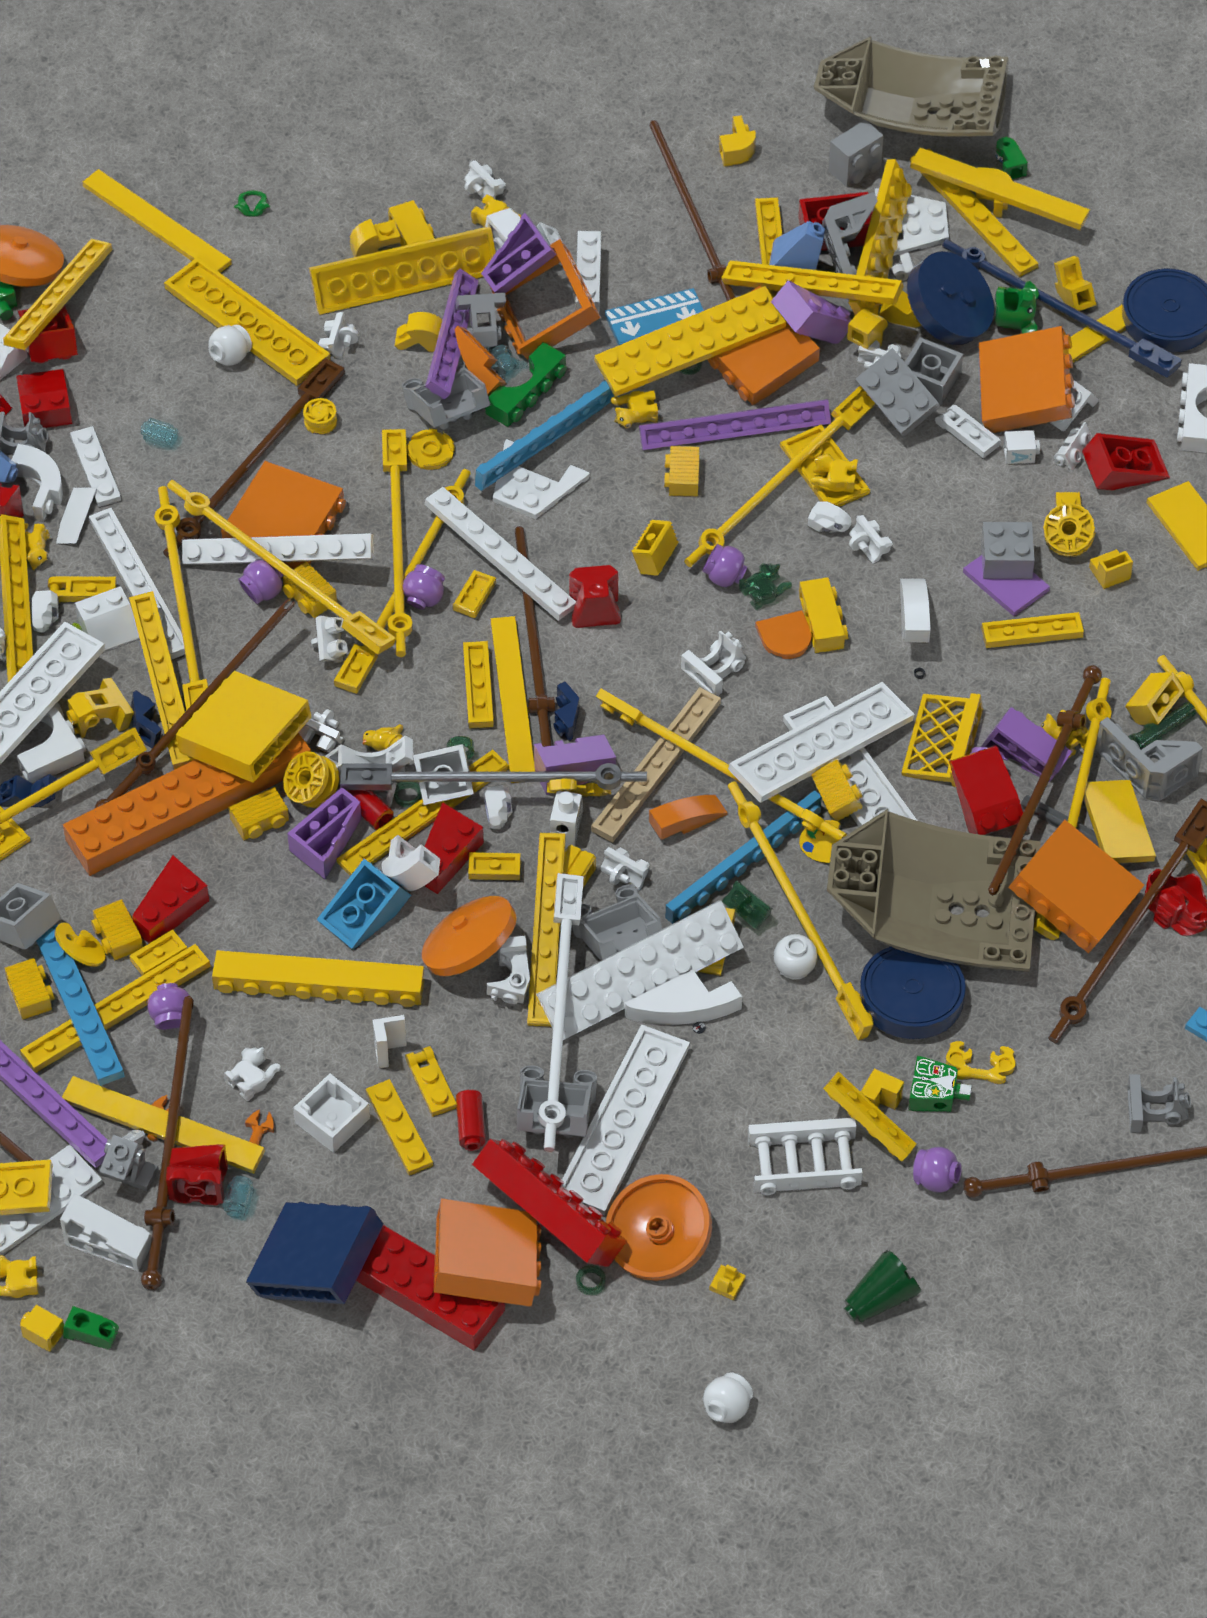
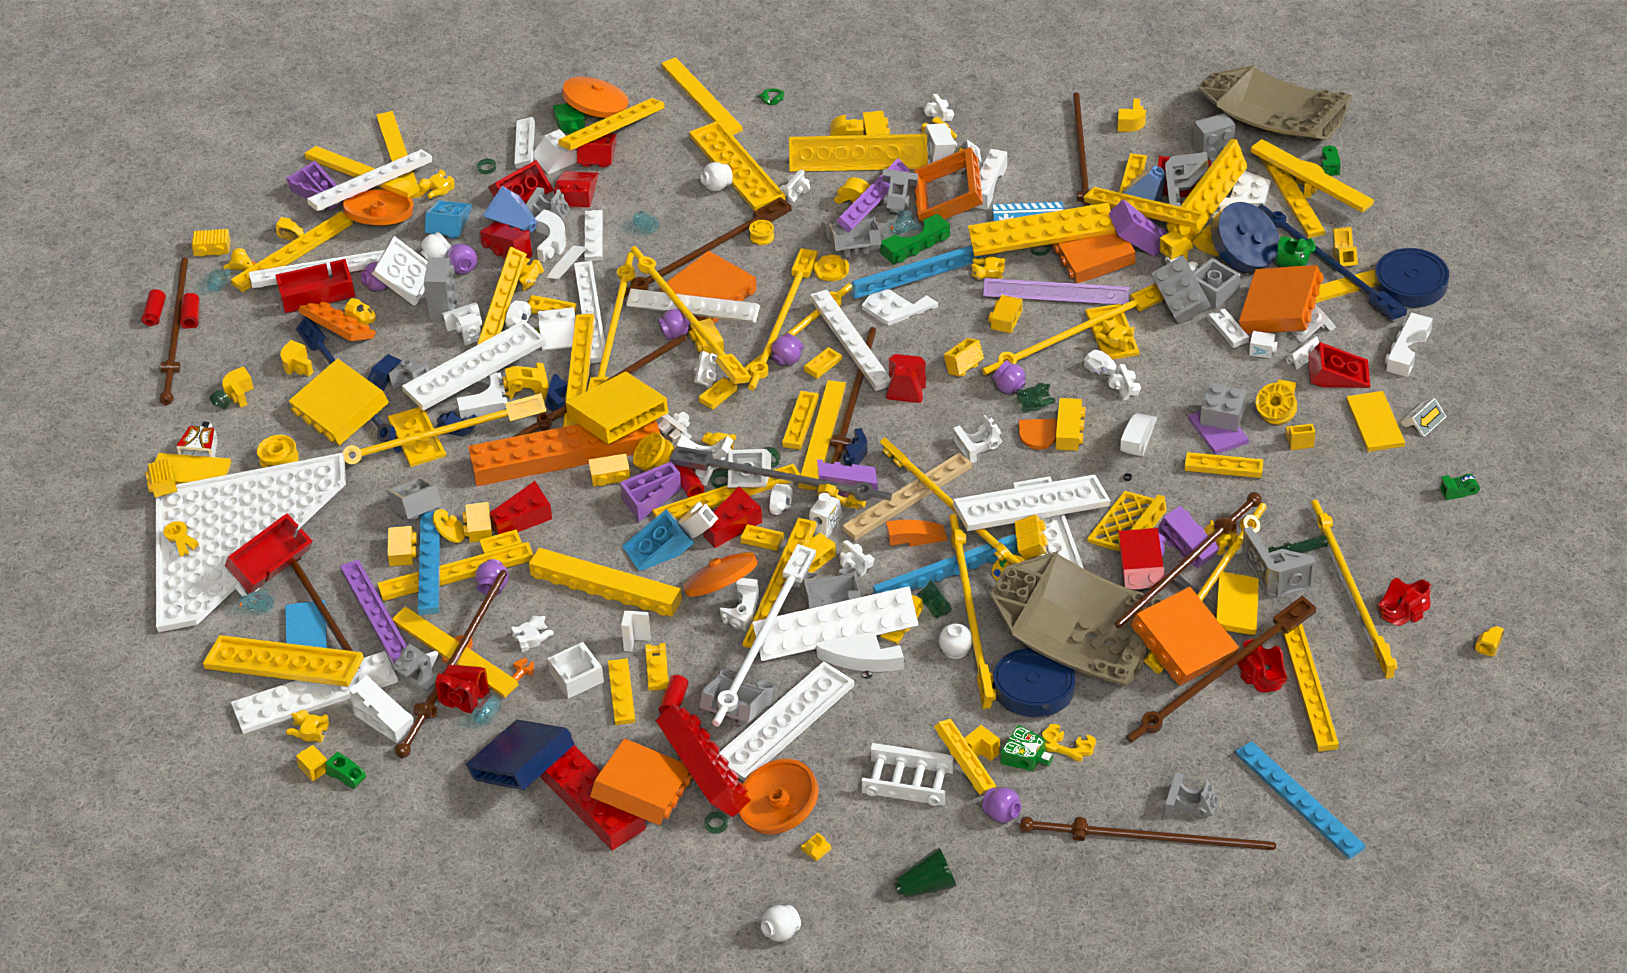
camera: 20 degrees right, 10 degrees down
(478, 359) = (884, 214): orange slope -> none
(518, 257) = (936, 152): medium lavender wedge -> none
(1154, 698) = (1298, 526): yellow brick -> none

